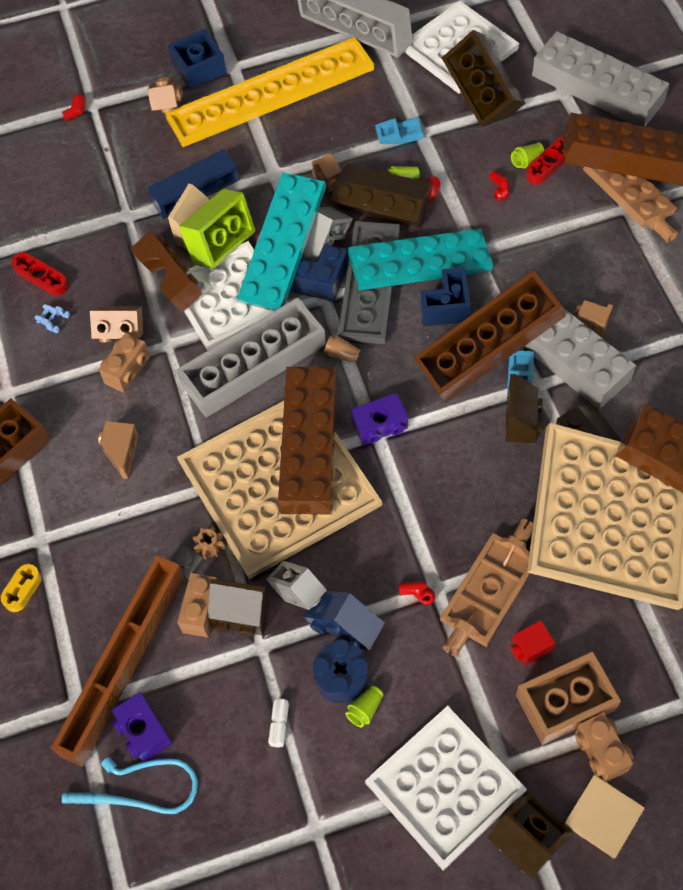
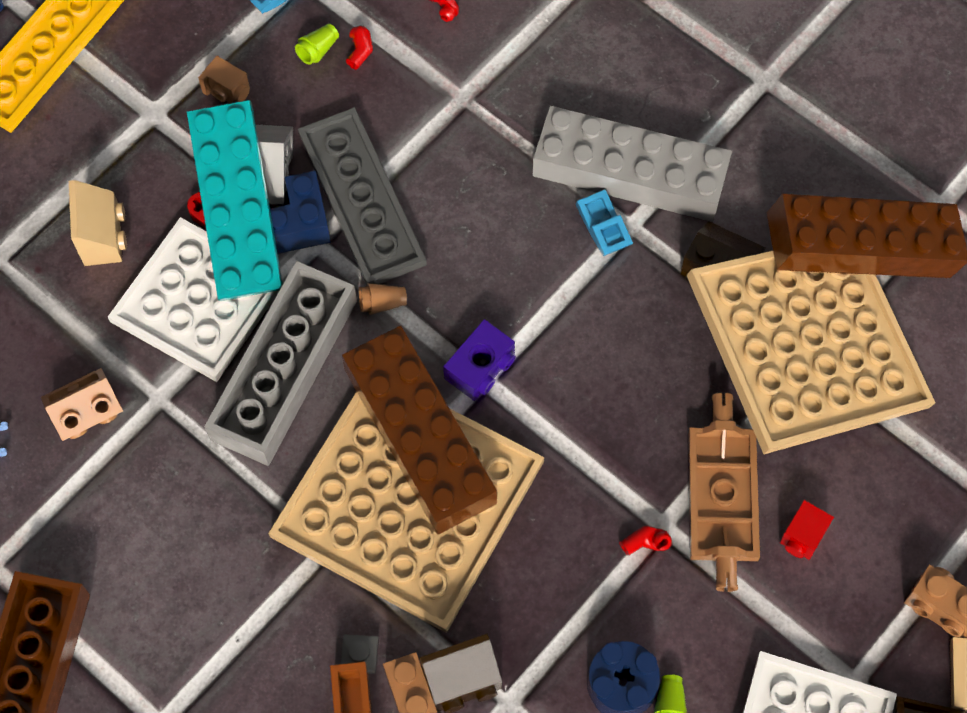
camera: 35 degrees left, 5 degrees up
(119, 445) = (184, 557): medium nougat slope -> none
(124, 362) = (124, 450): medium nougat brick -> none
(177, 284) = (133, 318): reddish brown arch -> none
(206, 175) = (46, 187): dark blue brick -> none
(206, 536) = (373, 605): medium nougat gear -> none
(217, 228) = (138, 221): lime brick -> none
(296, 585) = (514, 609): light grey brick -> none
(345, 617) = (588, 617): dark blue brick -> none
(381, 195) = (311, 79): dark brown slope -> none
(418, 258) = (405, 140): teal plate -> none
(449, 303) = (476, 177): dark blue brick -> none
(490, 336) = (555, 197): reddish brown brick -> none
(522, 411) = (636, 269): dark brown slope -> none
(567, 697) = (881, 570): medium nougat brick -> none
(594, 316) = (647, 113): medium nougat brick -> none

